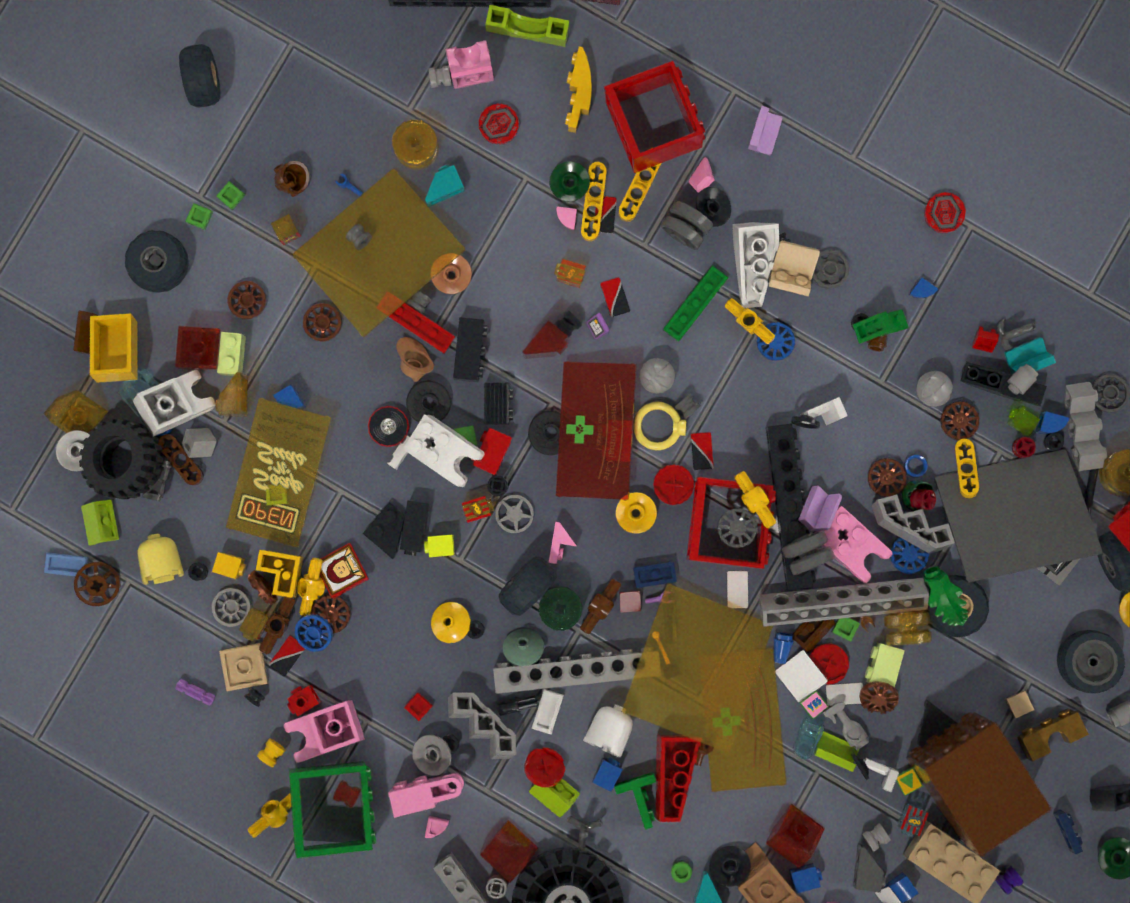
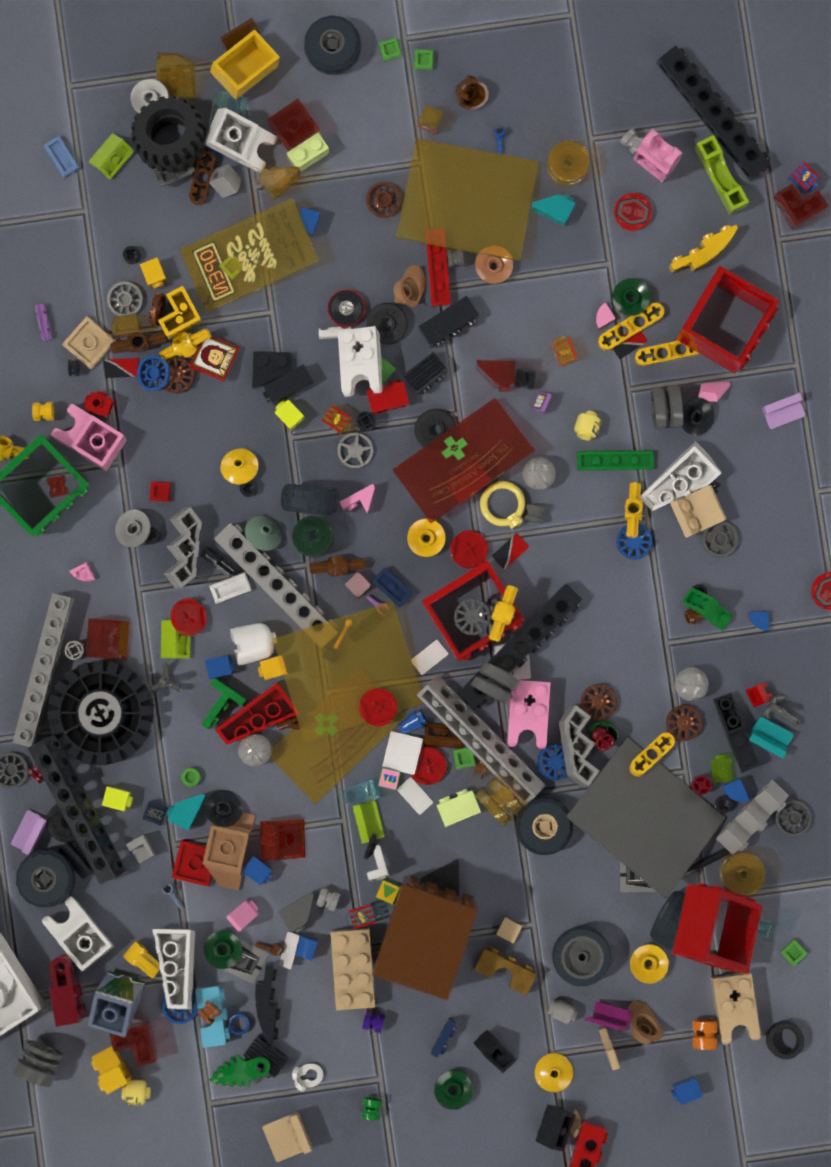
camera: 55 degrees right, 0 degrees up
(96, 584) = (65, 189): reddish brown wheel -> none
(159, 560) = (118, 220): light yellow cylinder -> none
(246, 300) = (356, 132): copper wheel -> none
(358, 236) = (467, 176): dark grey wheel -> none
(423, 793) = (100, 543): bright pink brick -> none
(615, 297) = (573, 398): sticker -> none
(643, 732) = (270, 668): none -> yellow brick
(648, 303) = (587, 425): none -> light yellow head
(702, 800) = (254, 750): none -> light grey piece
(747, 667) = (377, 707): none -> red tile
(819, 509) = (534, 668): lavender panel -> none
(830, 411) = (614, 620): white piece -> none
(851, 729) = (392, 821): light grey piece -> none
(879, 697) = (431, 821): copper wheel -> none
(924, 463) = (632, 716): blue piece -> none
(945, 597) = (543, 810): green plant -> none
(1022, 379) = (749, 742): light grey brick -> none

